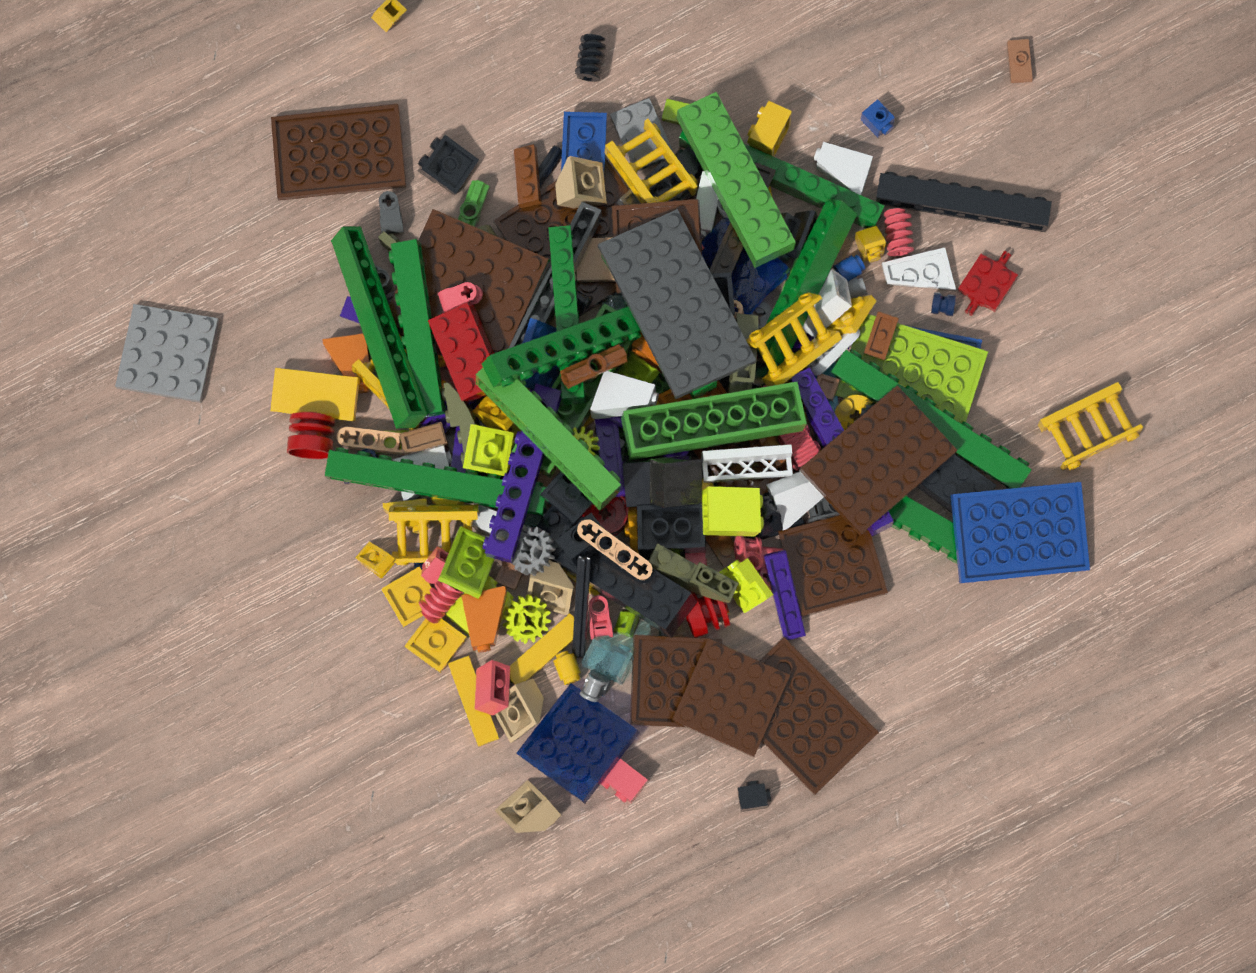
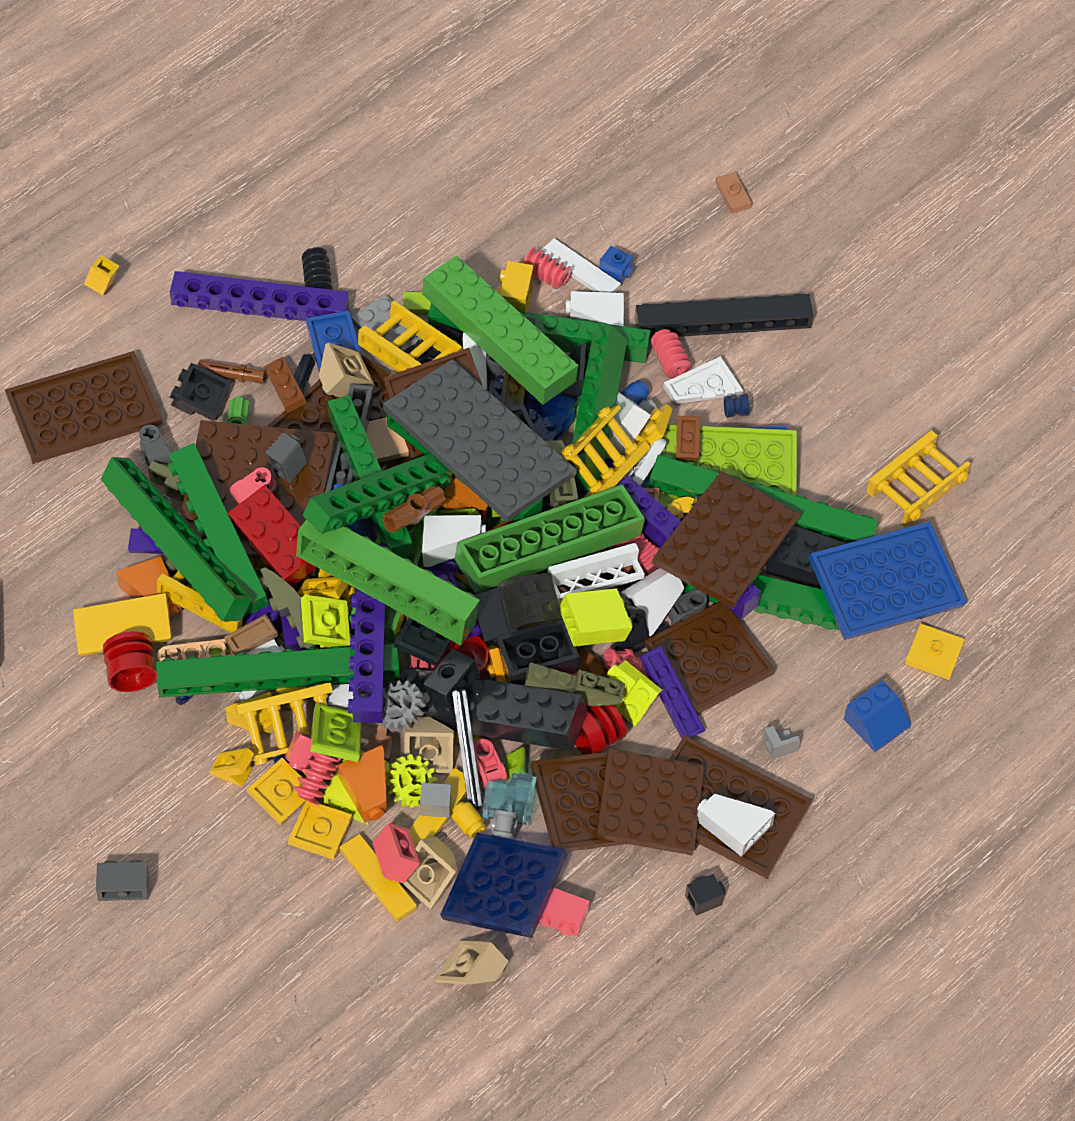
camera: 25 degrees left, 20 degrees down
(253, 645) = (122, 880): none -> dark grey brick
(464, 40) = (254, 297): none -> dark purple brick
(494, 278) = (286, 456): none -> dark grey brick
(505, 158) = (239, 373): none -> dark orange pin
(542, 644) = (435, 800): none -> light grey panel
(616, 547) = (487, 676): light nougat beam -> none
(799, 739) = (734, 821): none -> white slope
(809, 108) = (547, 270): none -> coral piece
(843, 113) = (582, 270): none -> white tile
(870, 244) = (647, 367): yellow slope -> none
(870, 665) = (780, 743): none -> light grey panel
(966, 664) = (877, 716): none -> blue slope
(987, 283) = (772, 380): red plate -> none
(1043, 610) = (934, 651): none -> yellow plate

